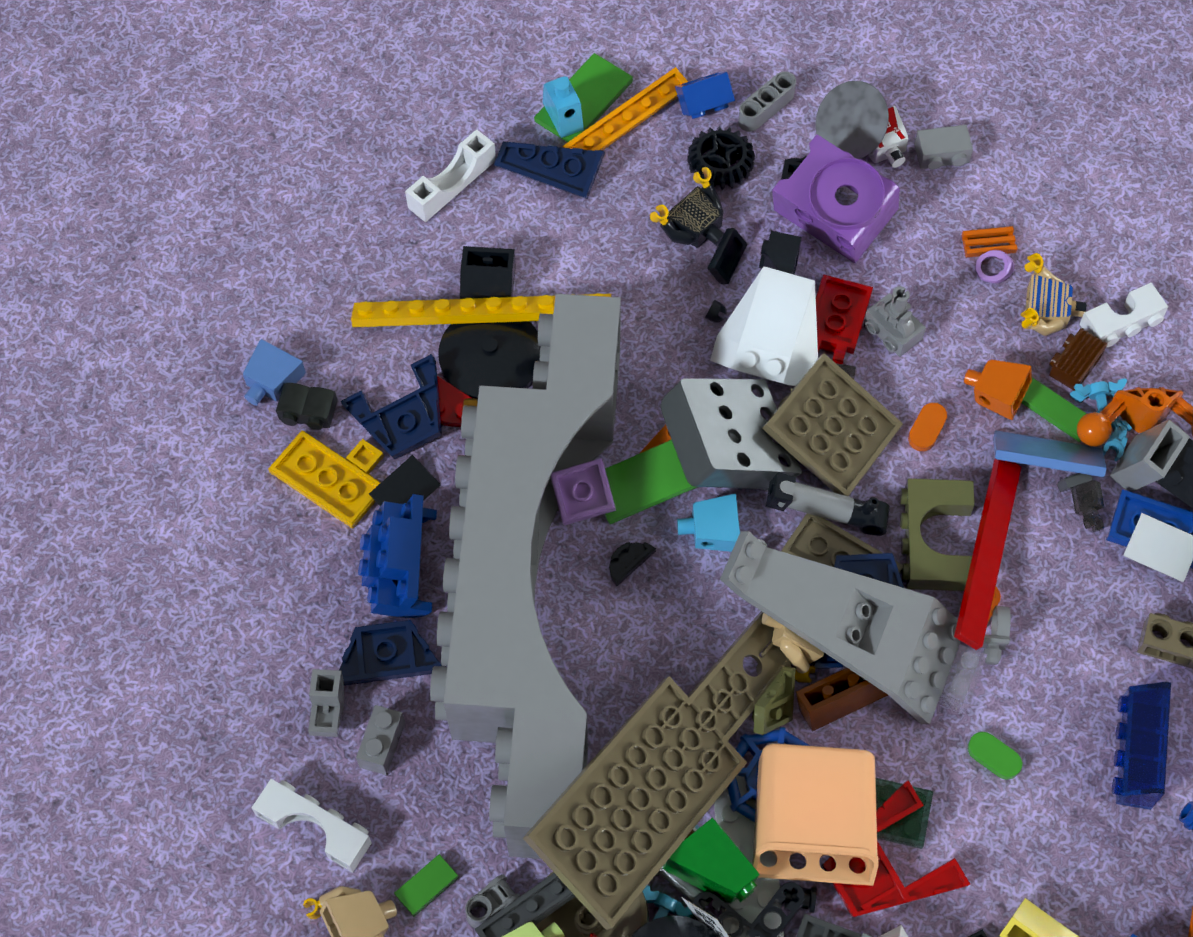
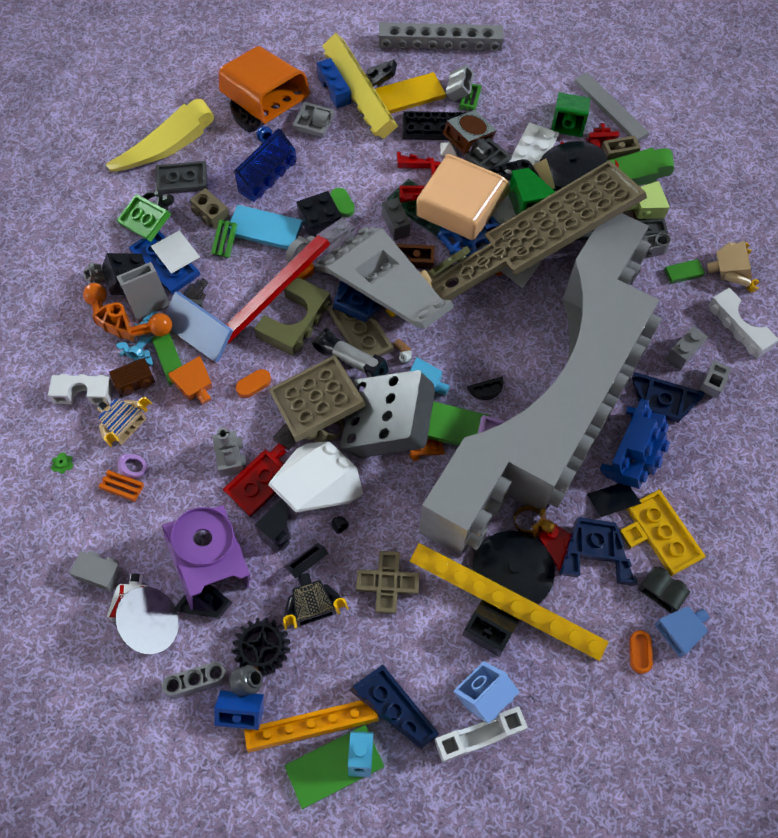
camera: 155 degrees left, 0 degrees up
(311, 334) = (640, 652): none -> orange tile
(463, 207) = (486, 692): none -> light blue brick
(626, 276) = (387, 582): none -> dark tan plate
(713, 112) = (246, 680): none -> dark grey head
(896, 753) = (396, 219): none -> dark grey brick
(1010, 705) = (317, 212): none -> black brick
(1073, 651) = (265, 227): none -> medium azure tile
(1076, 242) = (65, 465): none -> bright green plant
(1096, 590) = (218, 235): none -> bright green tile
(1141, 888) = (313, 119): none -> light grey plate

